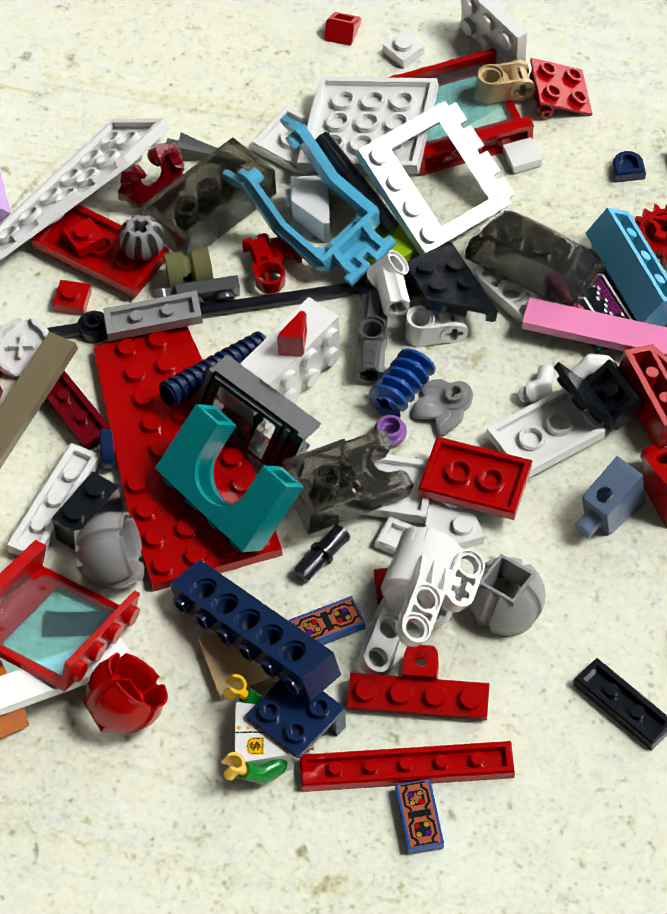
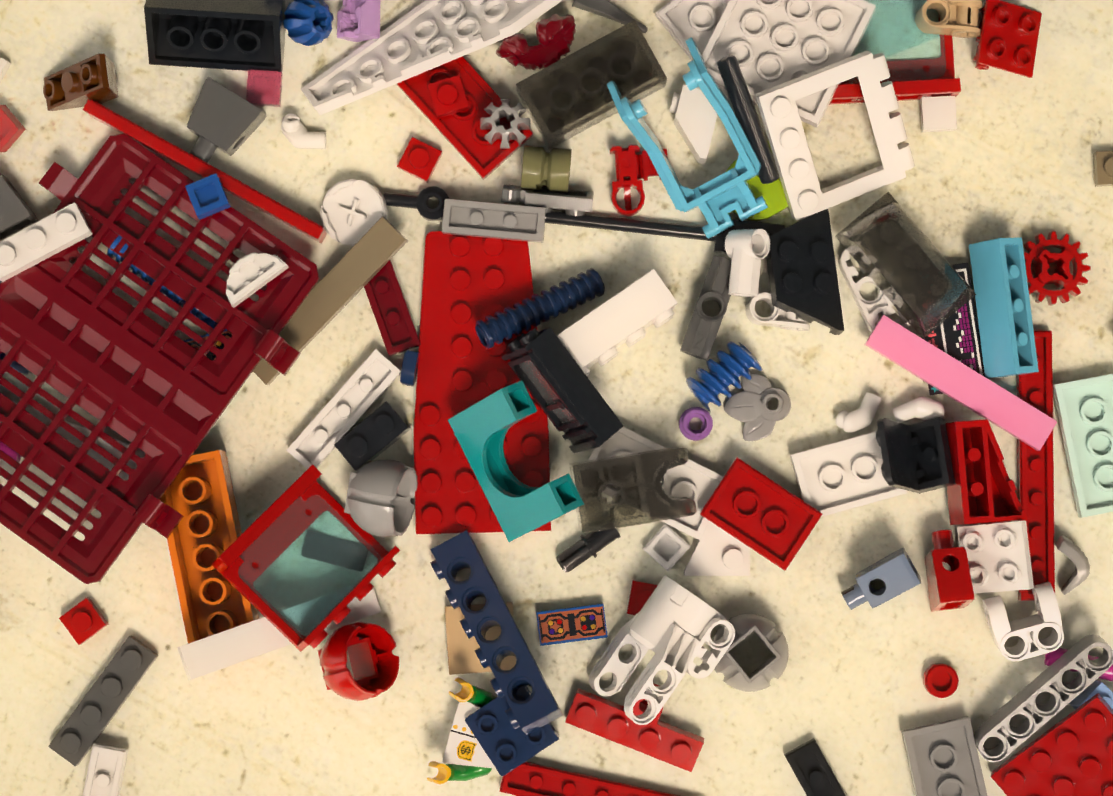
camera: 15 degrees right, 30 degrees up
(293, 336) = (624, 326): red slope -> none
(628, 167) = (1045, 162): dark blue tile -> none

